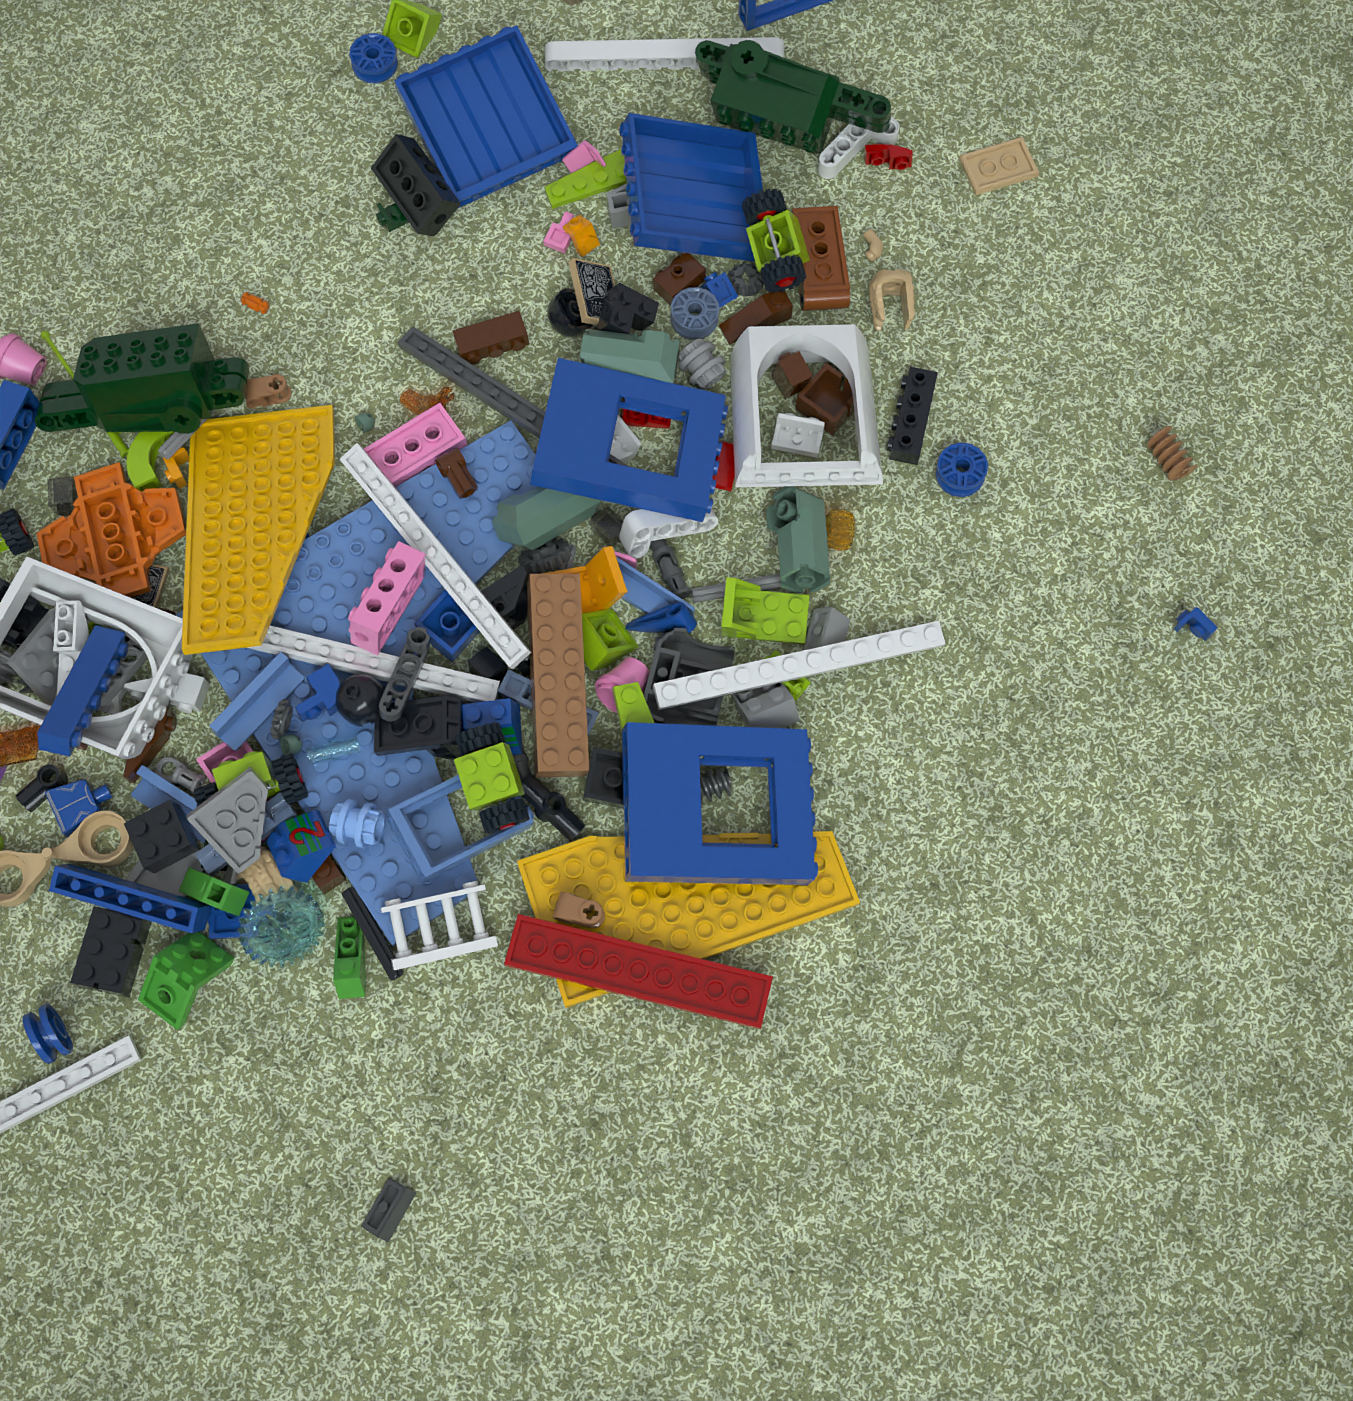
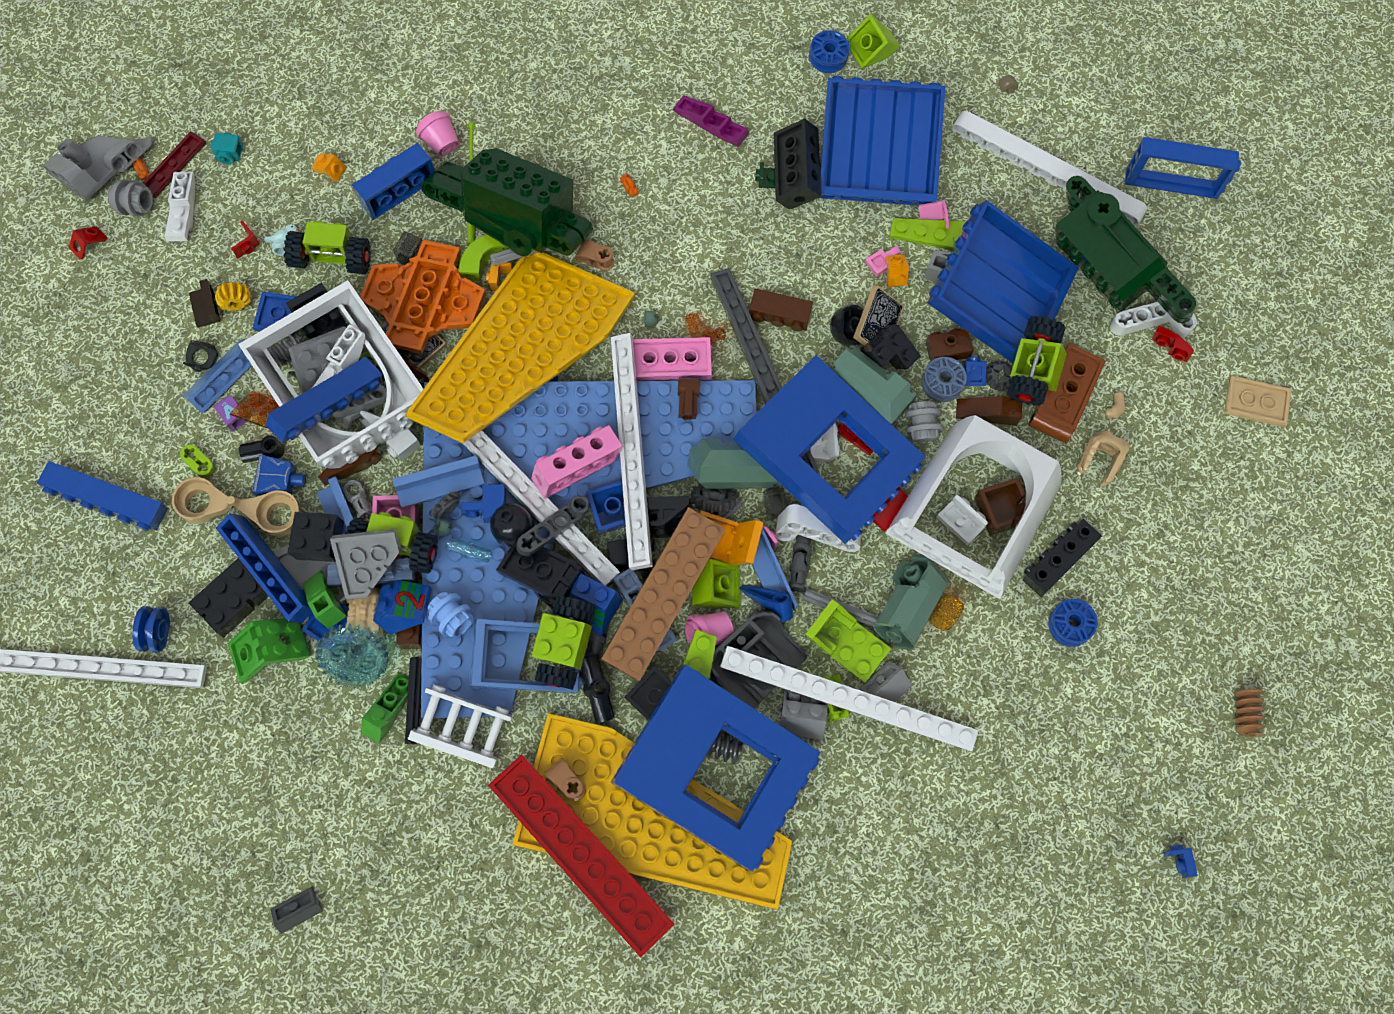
camera: 30 degrees right, 0 degrees up
(297, 192) = (711, 121): none -> magenta slope
(791, 374) = (986, 470): reddish brown brick -> none

